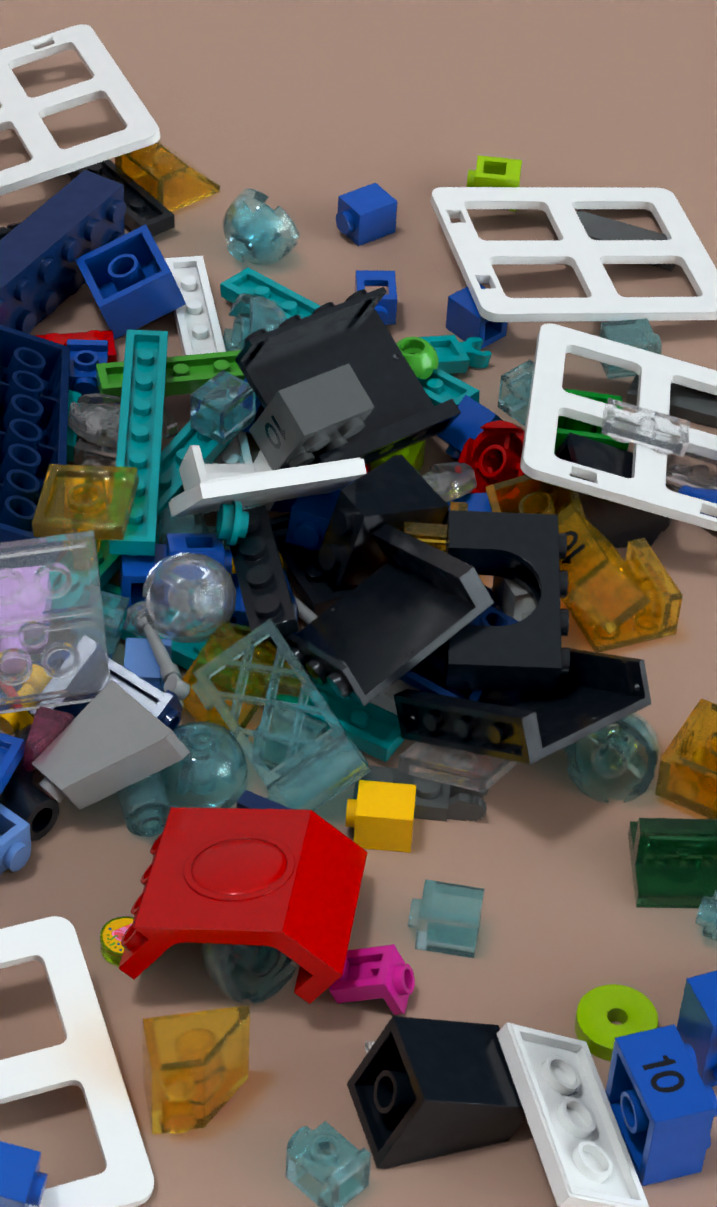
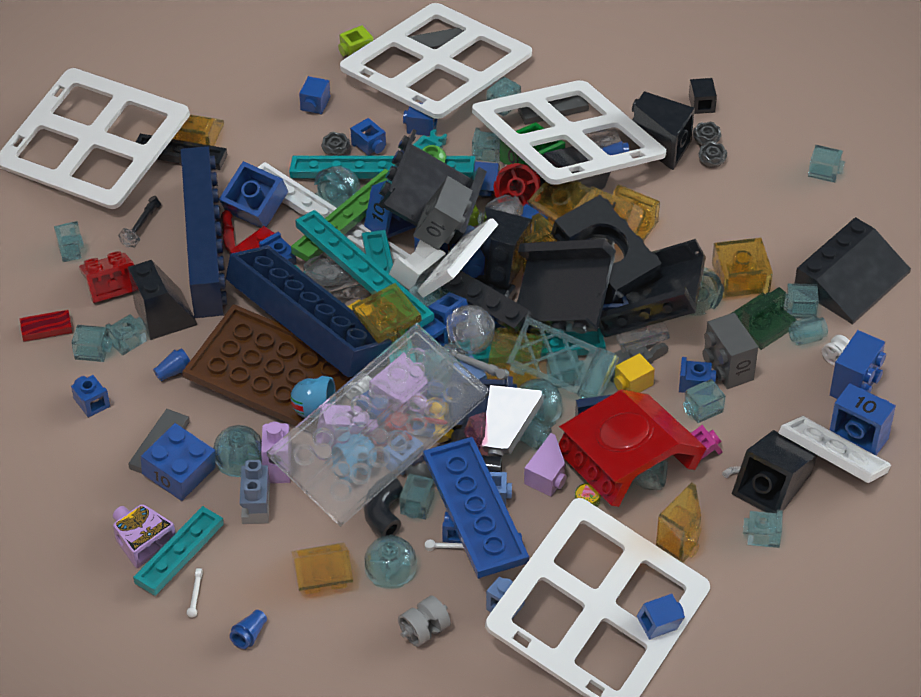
camera: 35 degrees left, 5 degrees up
(66, 311) = (228, 229): none -> red piece
(108, 858) = (546, 468): none -> lavender slope
(222, 407) = (381, 232): clear light blue brick -> none
(231, 522) = (458, 285): teal plate -> none
(257, 230) = (278, 133): clear light blue cylinder -> none
(324, 285) = (335, 144): none -> dark grey plate
(476, 865) = (694, 373): none -> blue brick
(557, 867) = (730, 350): none -> dark grey brick
(610, 1004) = (801, 392): lime piece -> none
(645, 427) = (575, 131): clear plate -> none

